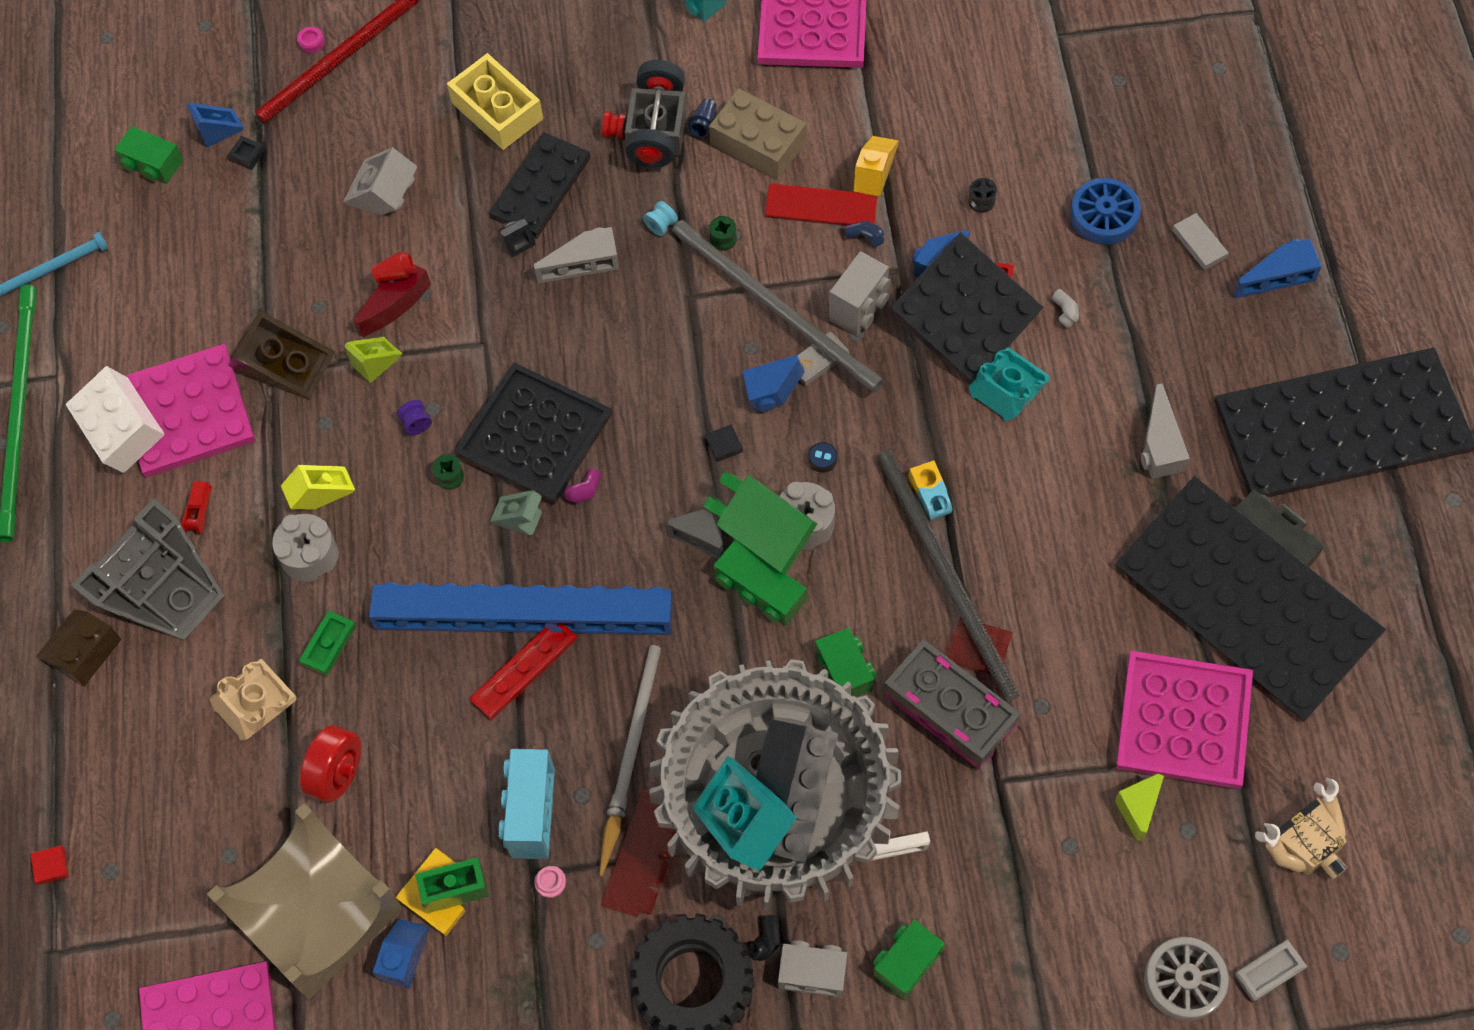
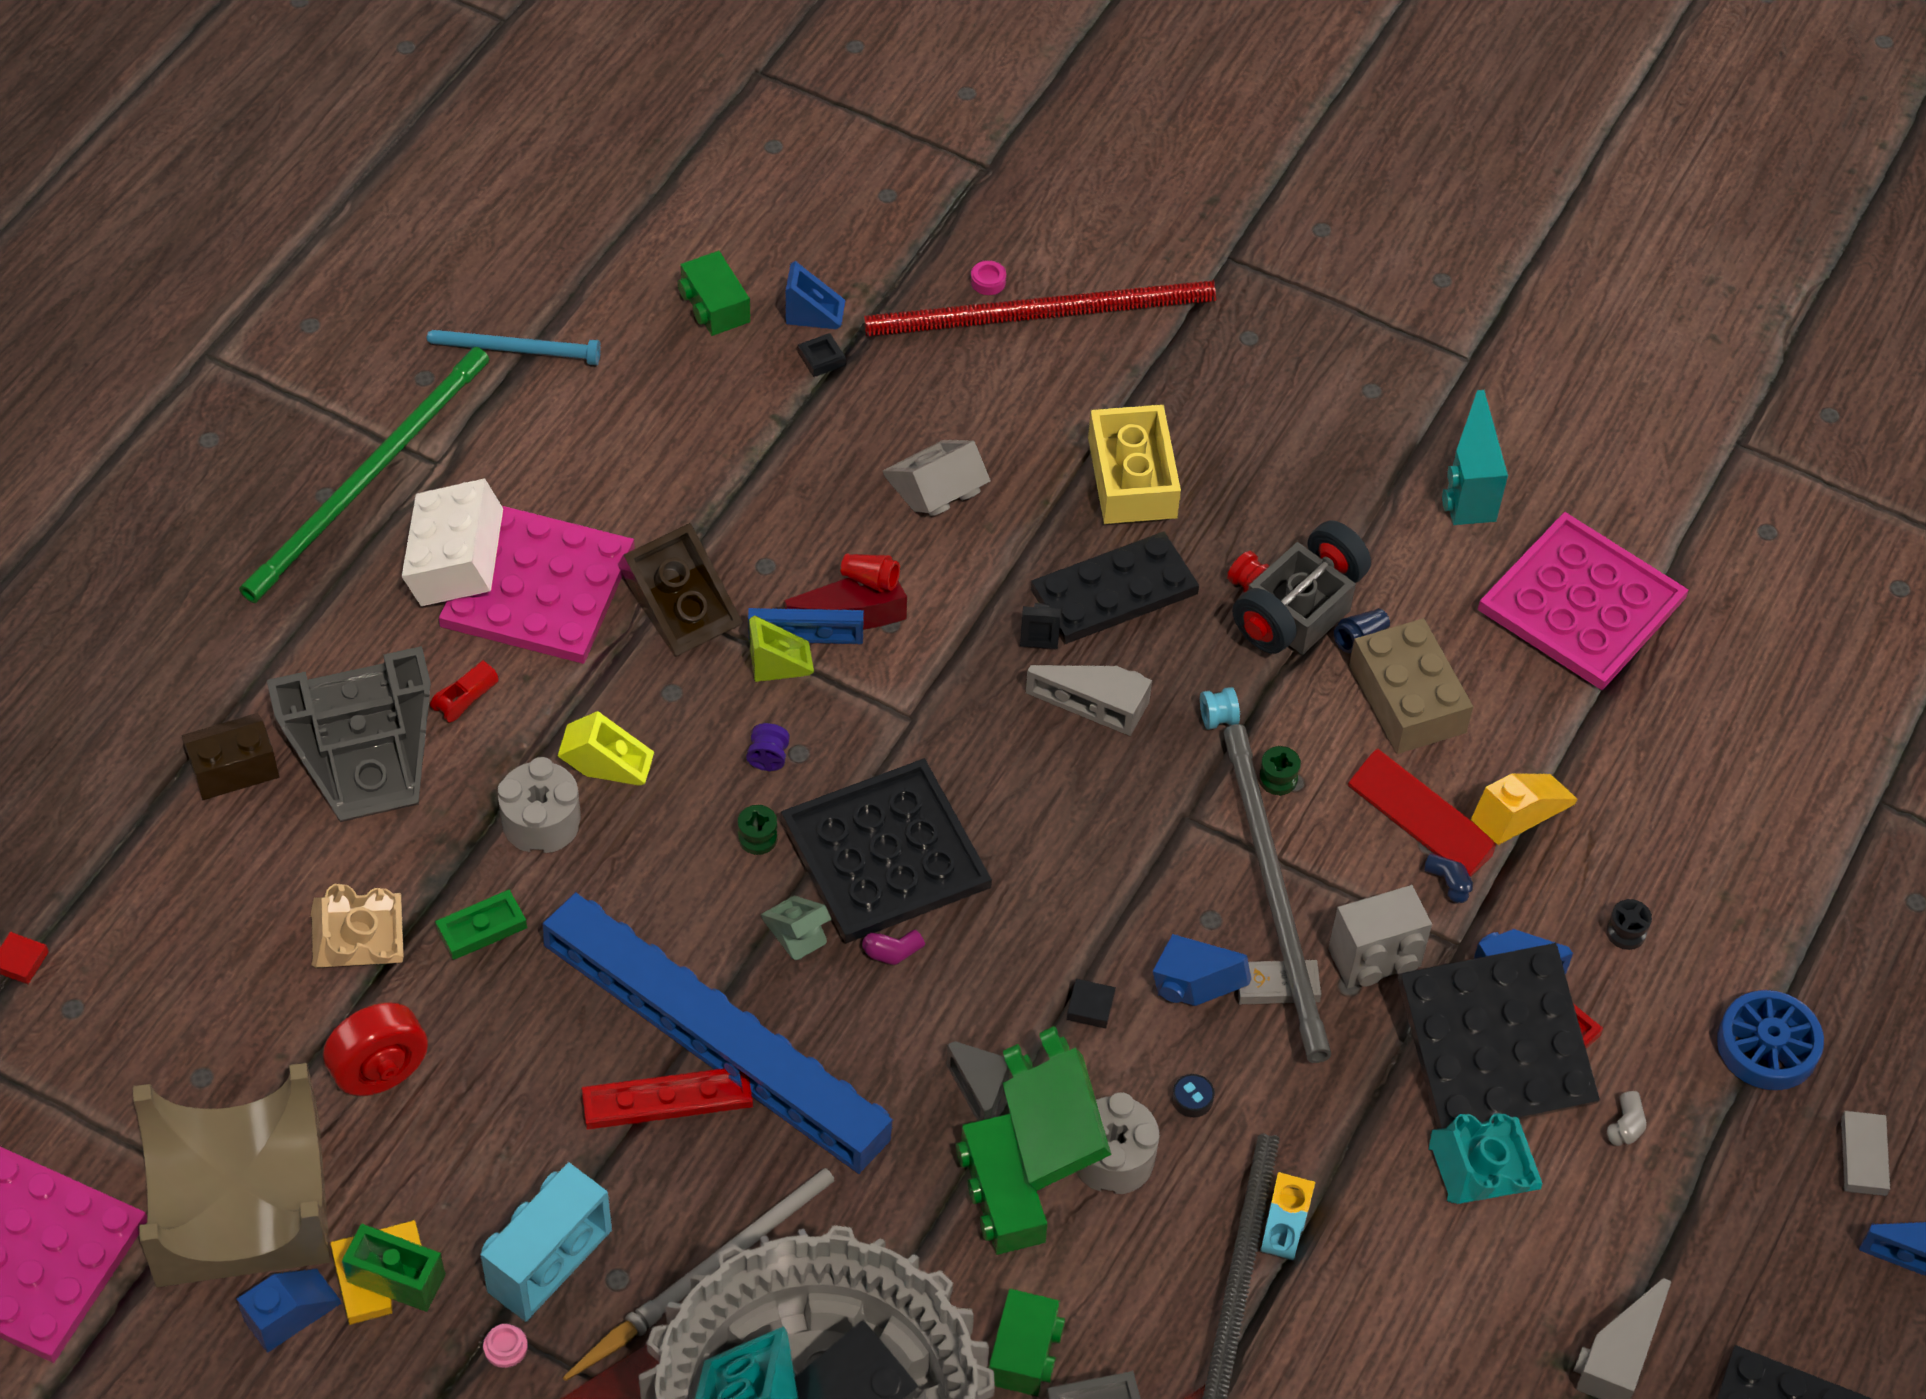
camera: 30 degrees right, 10 degrees down
(381, 324) = (816, 624): none -> blue tile

